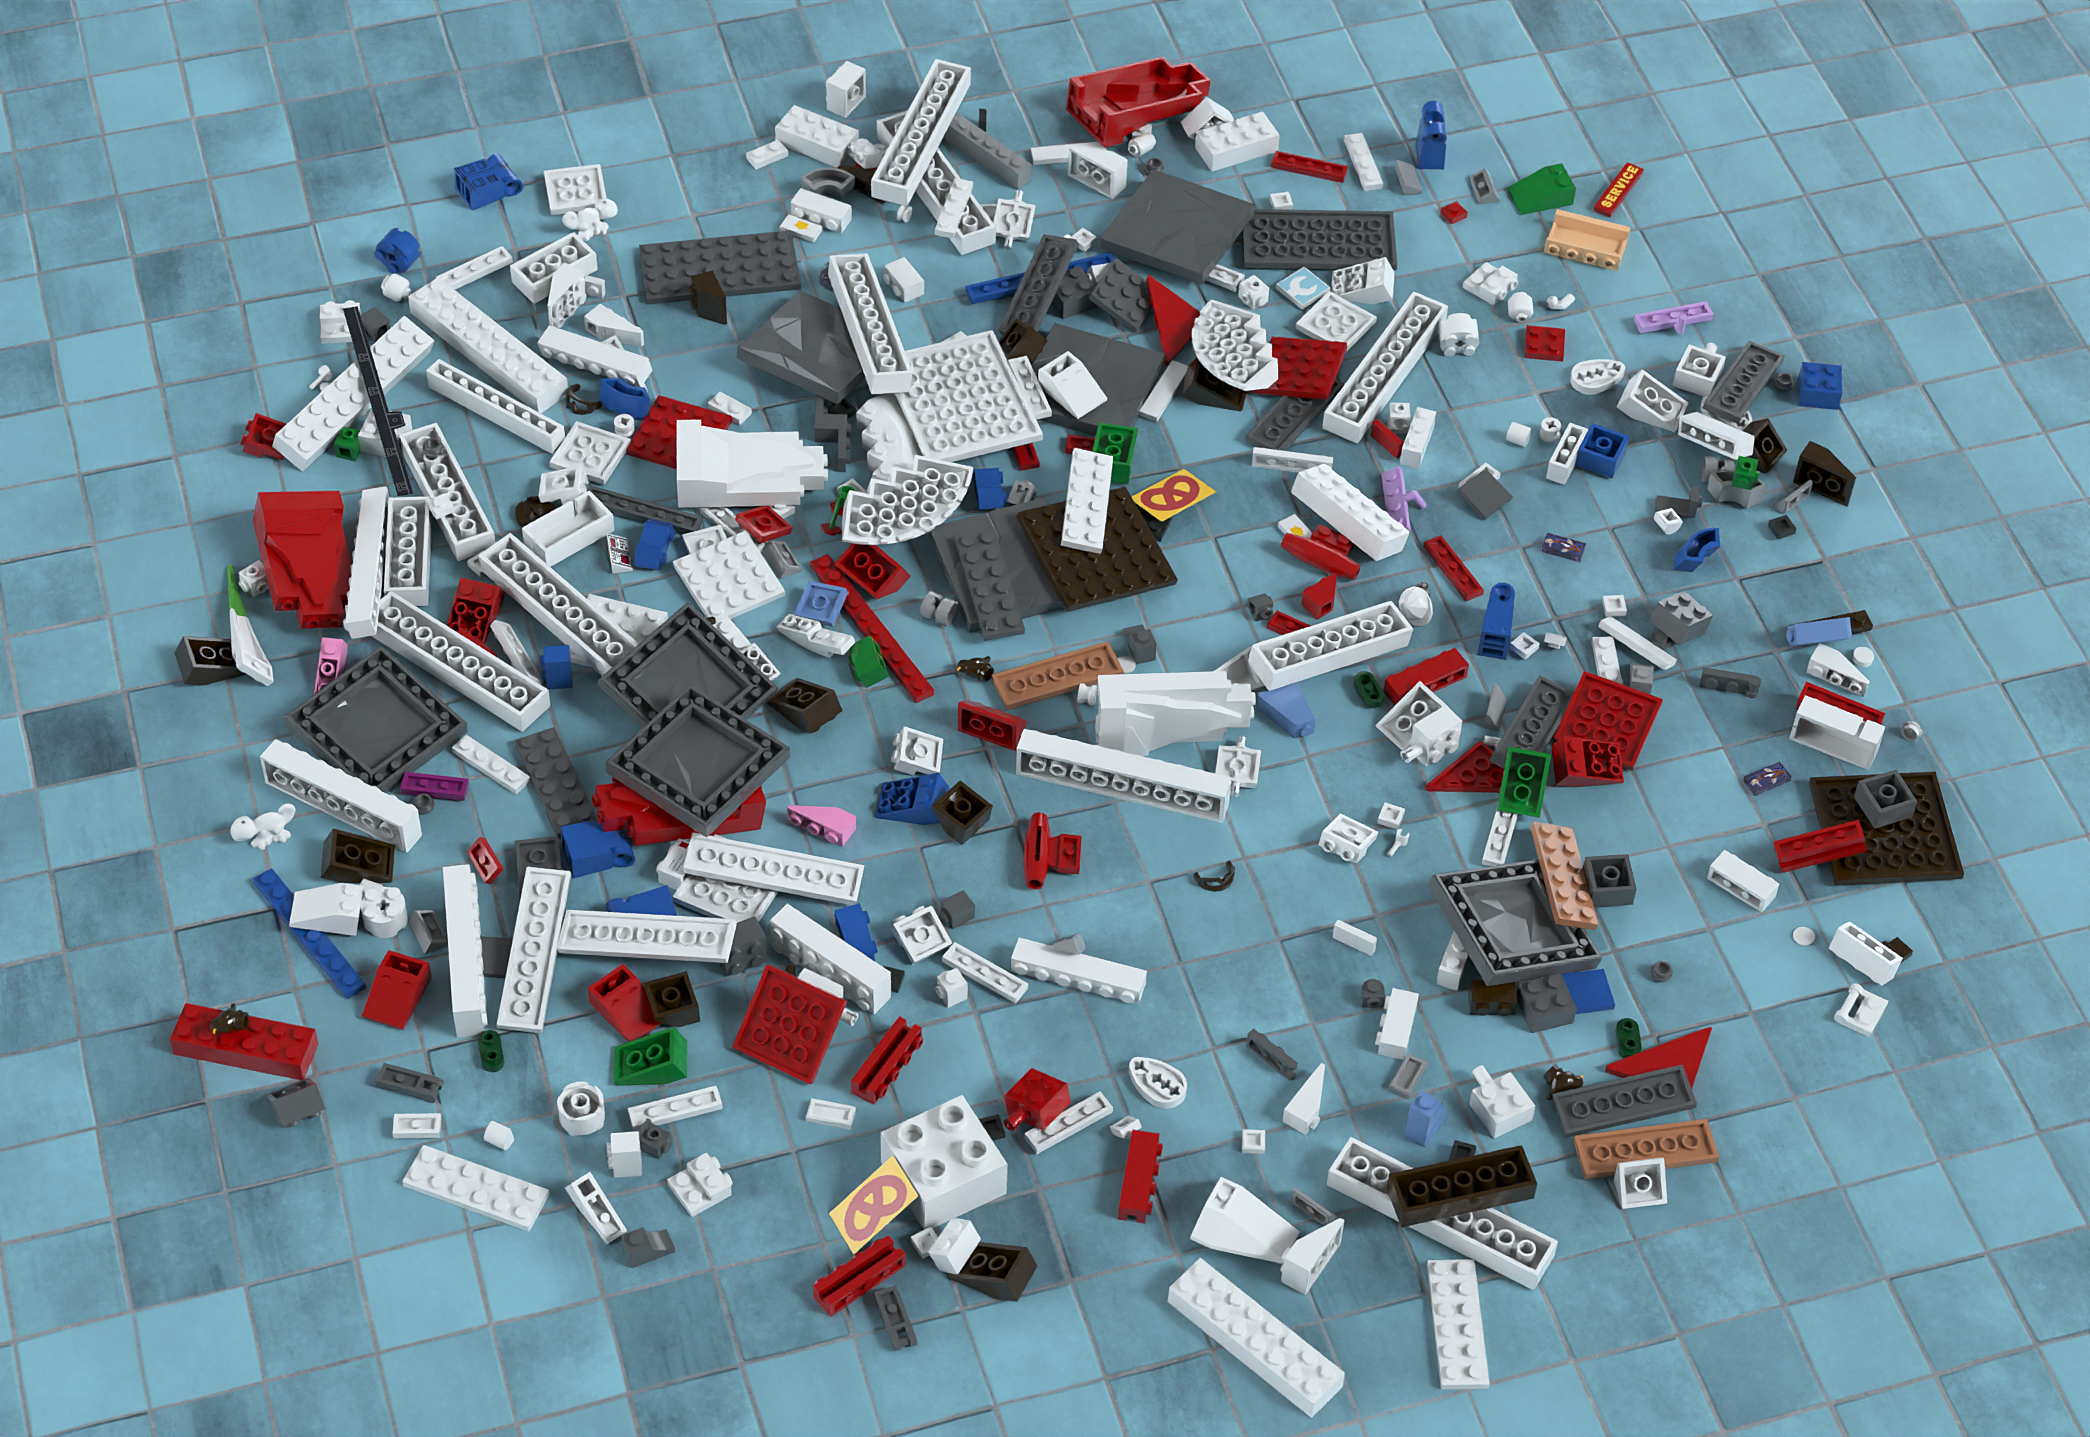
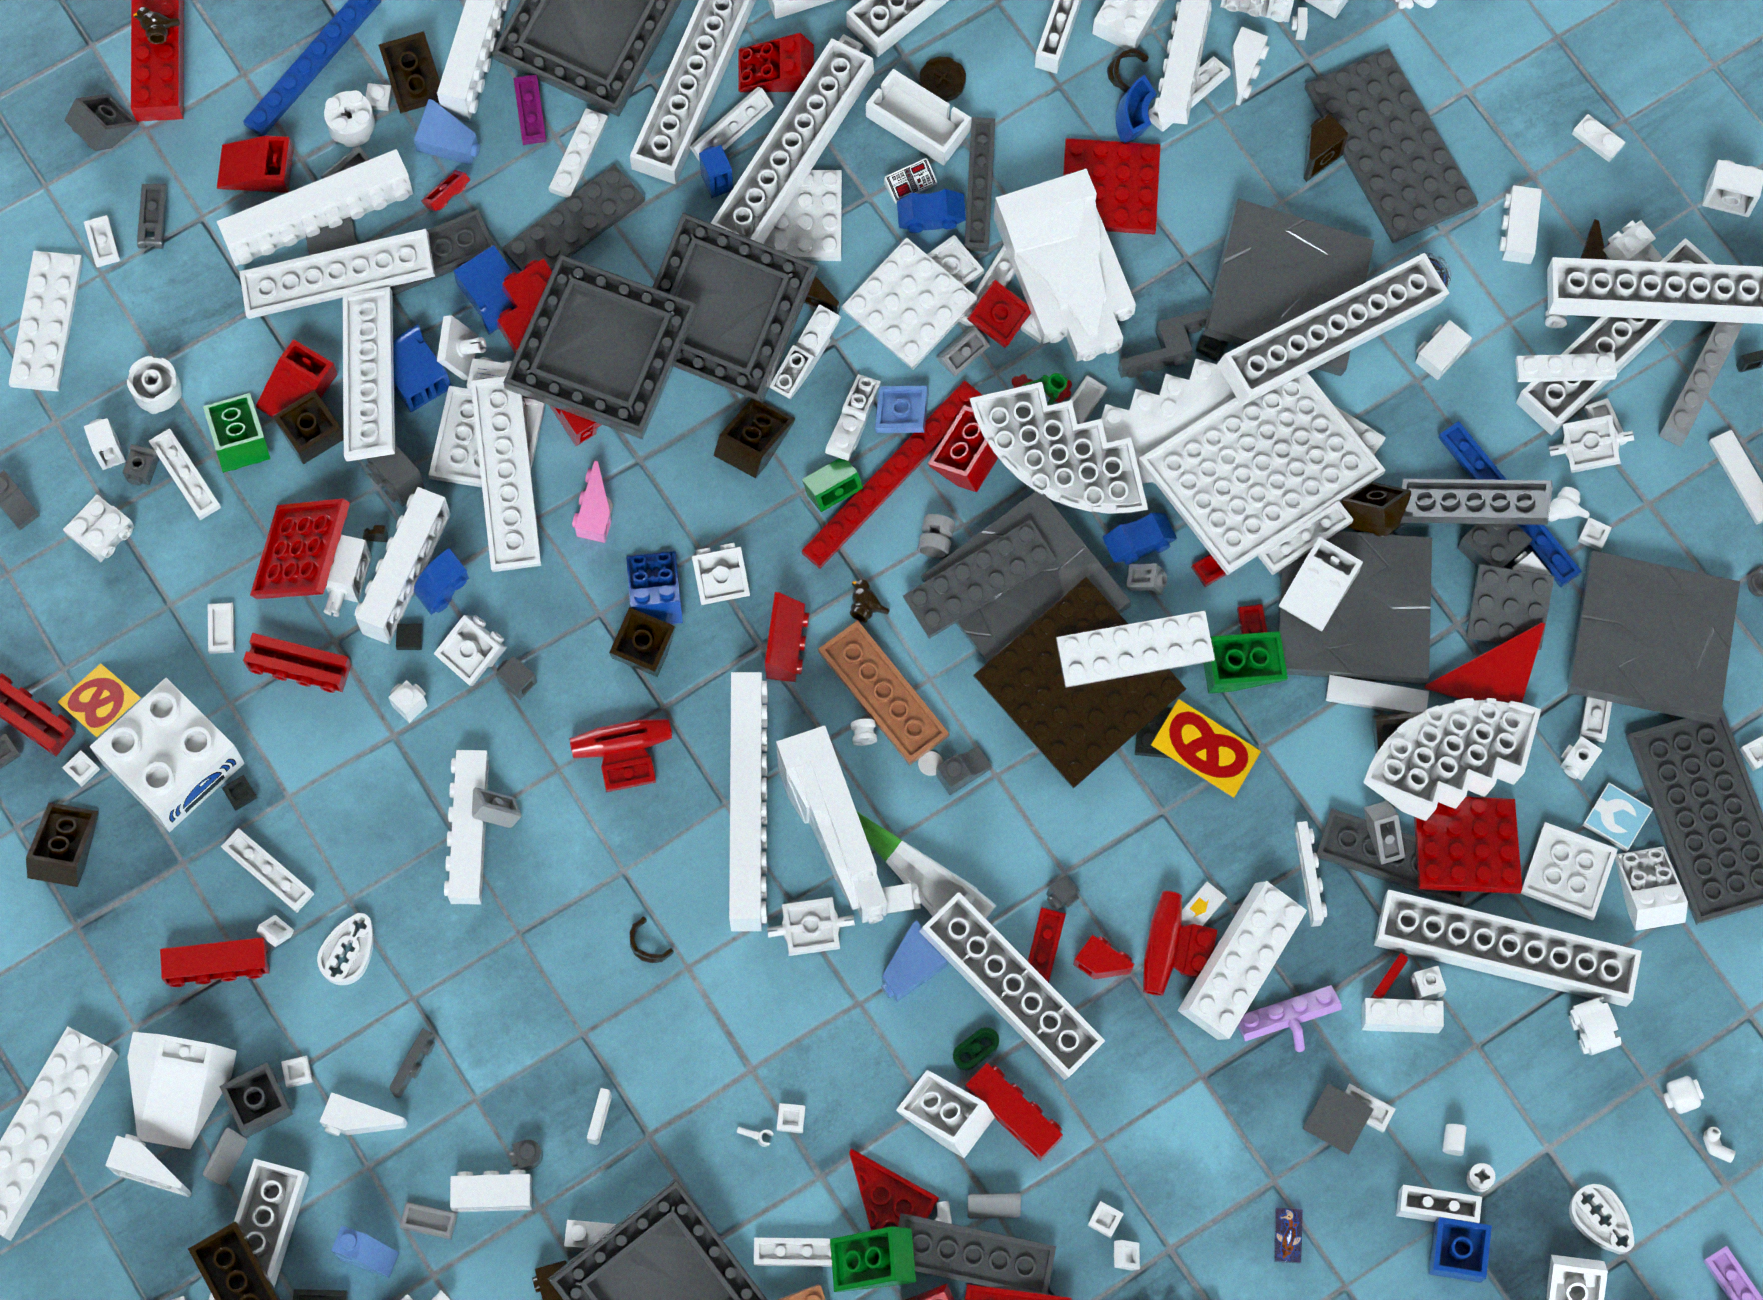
camera: 75 degrees right, 20 degrees up
(328, 908) = (334, 64): white slope -> none
(423, 803) = (504, 107): flat silver plate -> none
(431, 849) = (445, 136): none -> medium blue slope
(463, 632) = (727, 83): red tile -> none
(489, 1049) = (214, 279): dark green plate -> none
(499, 1135) = (108, 320): white brick -> none
(563, 485) = (982, 91): white plate -> none
(593, 450) = (1046, 103): white plate -> none
(596, 1207) = (44, 436): white slope -> none
(624, 425) = (1098, 131): white wheel -> none
(644, 874) = (458, 347): none -> white tile
(729, 406) = (1170, 225): white plate -> none
(801, 228) = (1488, 212): white tile -> none
(816, 136) = (1644, 180): white brick -> none
(828, 181) = (1570, 220): light grey brick -> none
(954, 1245) = (76, 796): white brick -> none
(985, 972) = (441, 730): white plate -> none
(1035, 1100) = (275, 826): red brick -> none
(1098, 169) = (1715, 521): white slope -> none
(1274, 1166) = (256, 1100): none -> dark grey brick
(1276, 404) = (1385, 831): none -> light grey slope
(1347, 838) = (740, 1075): white plate -> none
(1416, 604) = (1127, 1070): white piece -> none
(1434, 737) = (911, 1139): white brick -> none
(1453, 568) = (1207, 1107): red tile -> none
(1491, 283) = (1718, 1049): white plate -> none
(1497, 622) = (1117, 1176): blue piece -> none
(1544, 343) = (1636, 1140): red plate -> none

